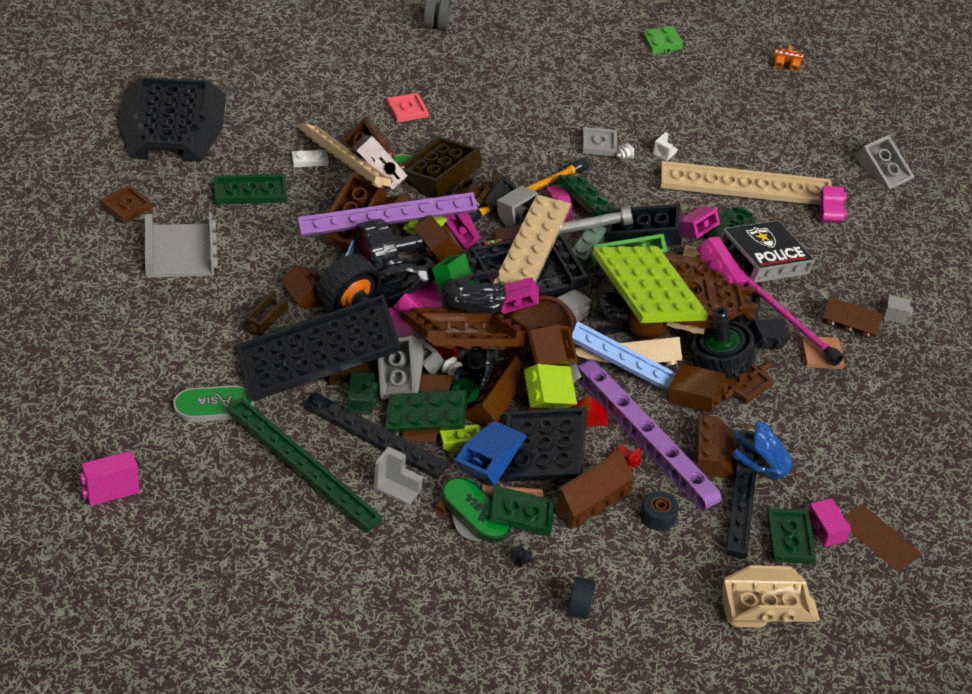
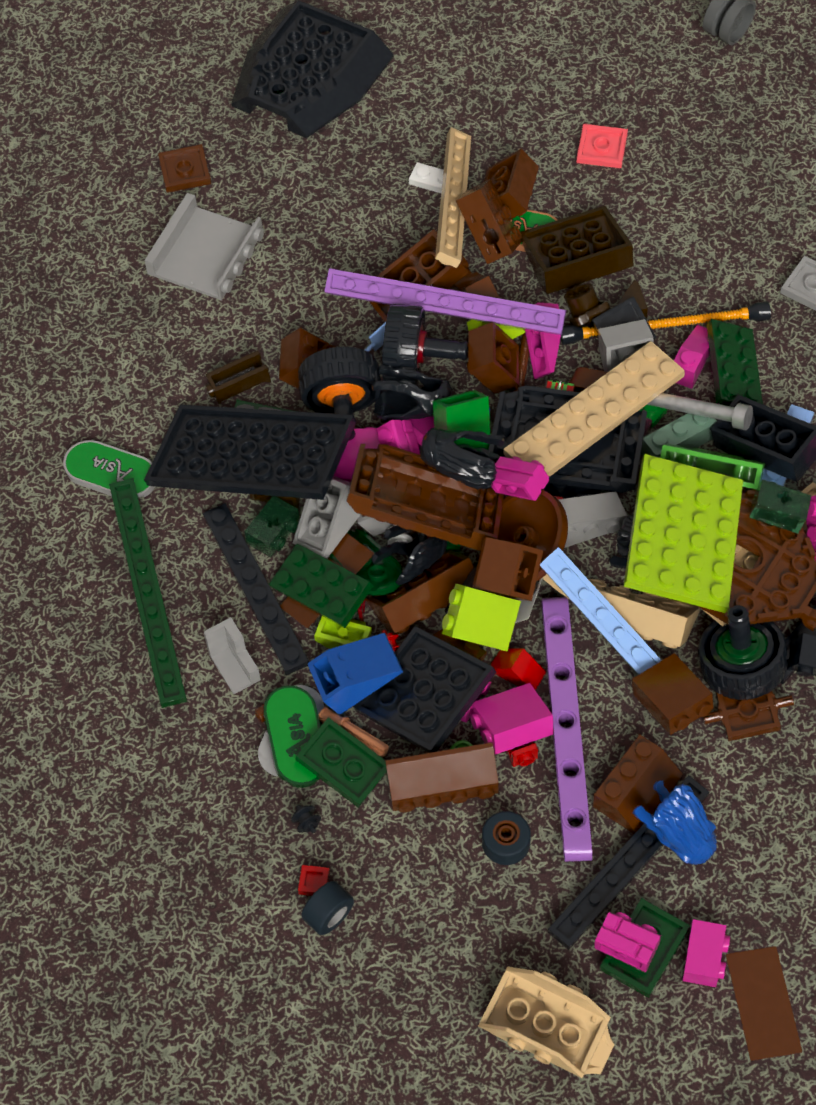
camera: 40 degrees right, 15 degrees up
(250, 189) = (334, 198): dark green plate -> none
(555, 589) = (312, 879): none -> red plate
(612, 435) = (512, 718): none -> dark pink brick
(689, 253) = (780, 506): none -> clear green brick
(783, 531) = (627, 940): none -> dark pink brick

